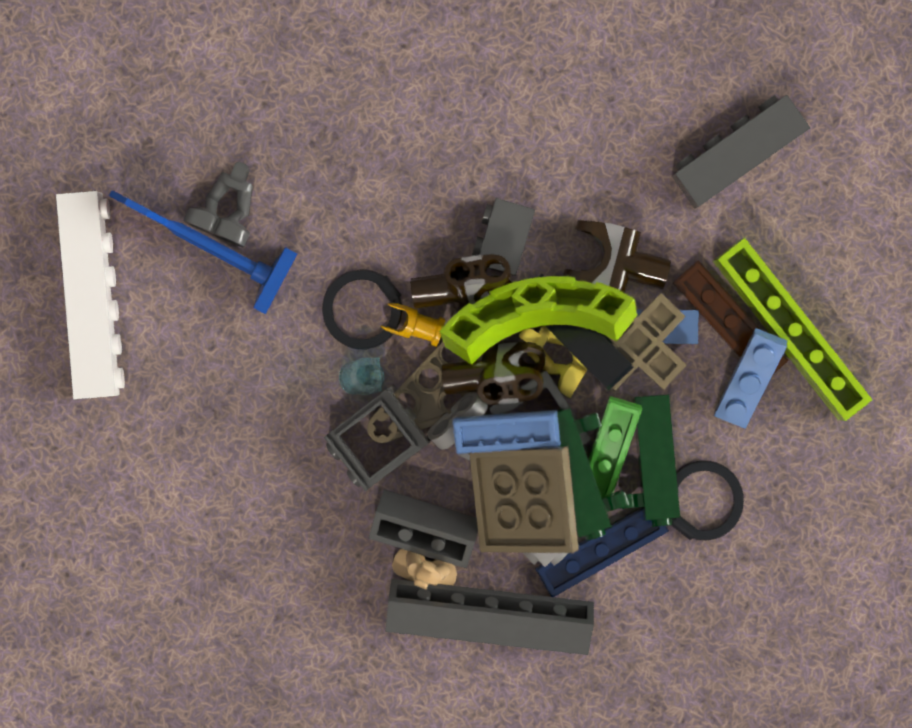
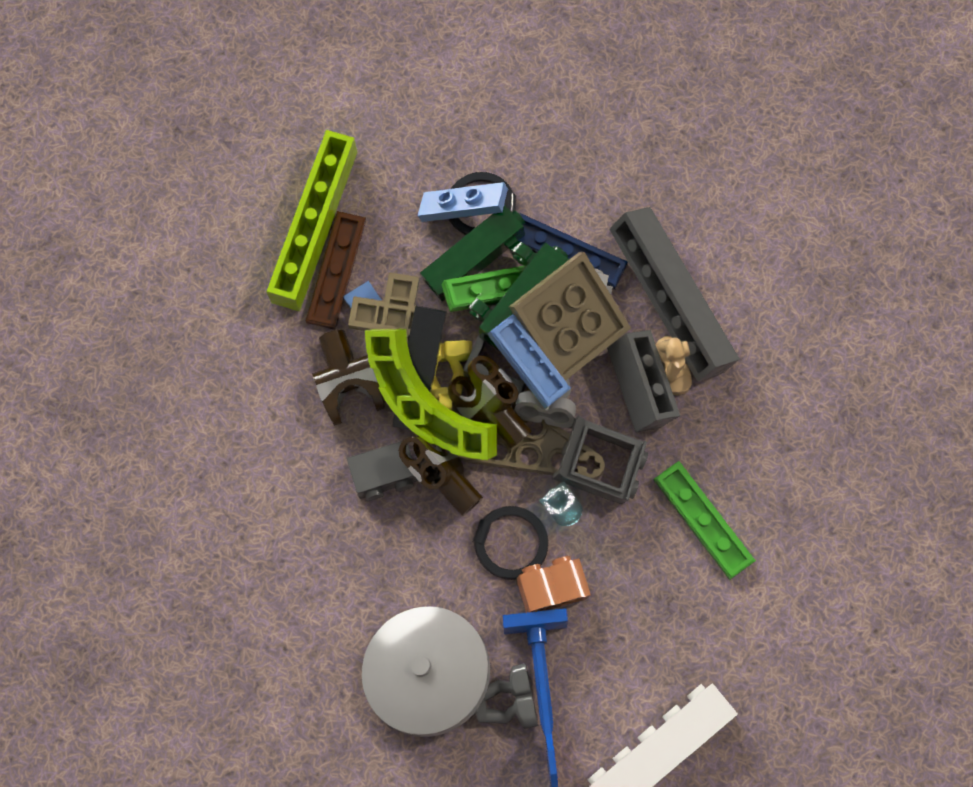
camera: 125 degrees left, 15 degrees down
(264, 495) = (704, 520): none -> bright green tile
(295, 318) = (553, 585): none -> nougat brick
(296, 155) = (426, 671): none -> light grey dish
(417, 325) = (494, 489): yellow piece -> none
(712, 482) = (463, 202): none -> plate
(740, 151) = (203, 342): dark grey brick -> none
(750, 378) = (368, 224): medium blue plate -> none

